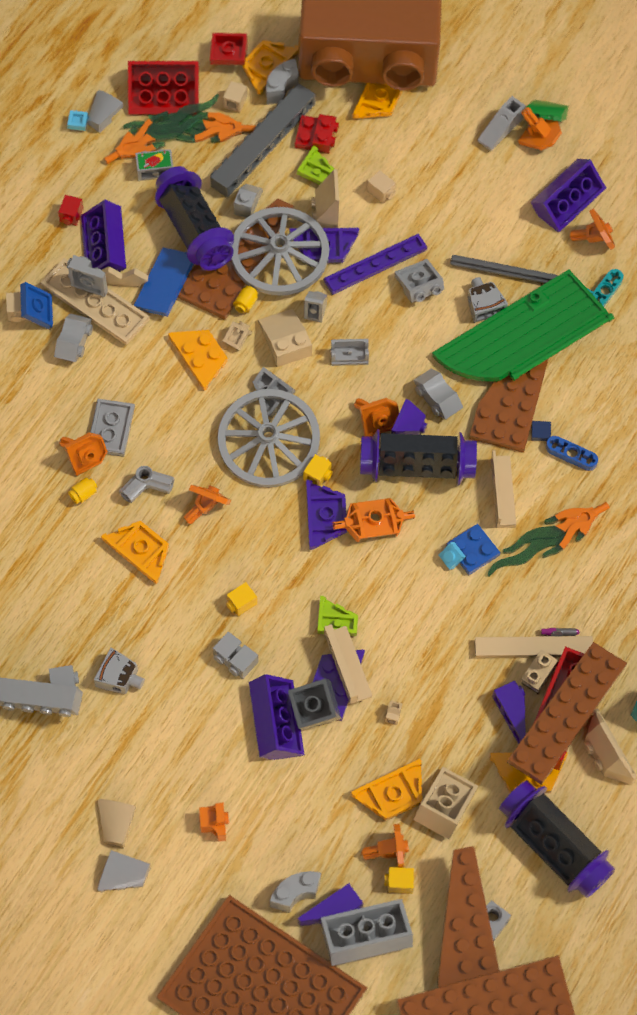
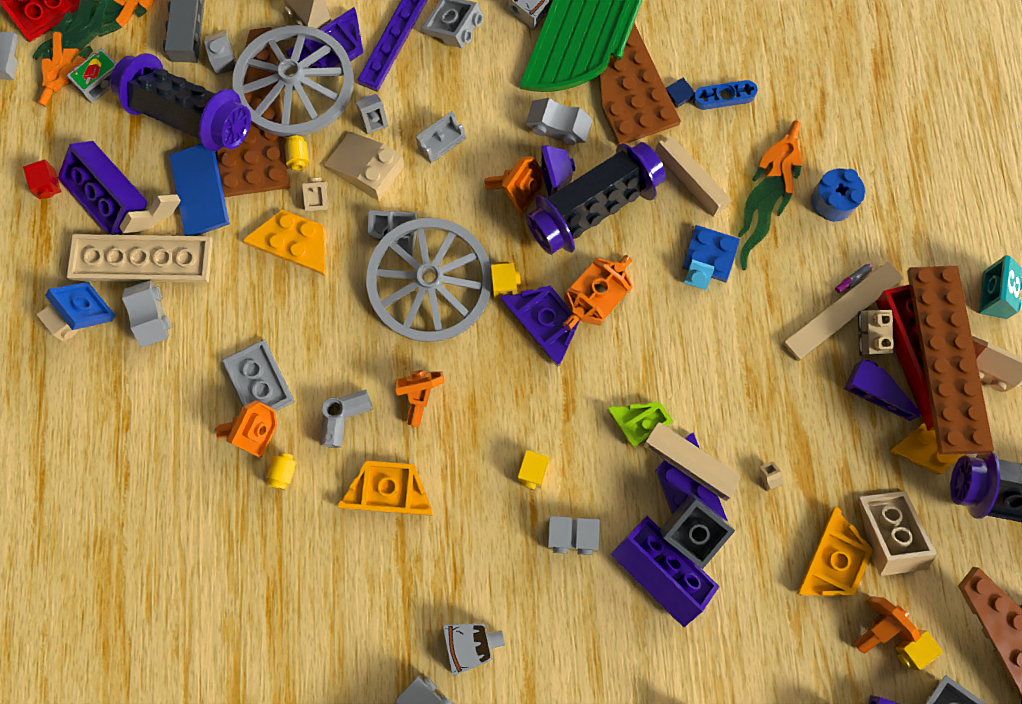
camera: 35 degrees left, 10 degrees up
(86, 277) = (111, 240): light grey plate -> none
(590, 559) = (838, 194): none -> blue brick

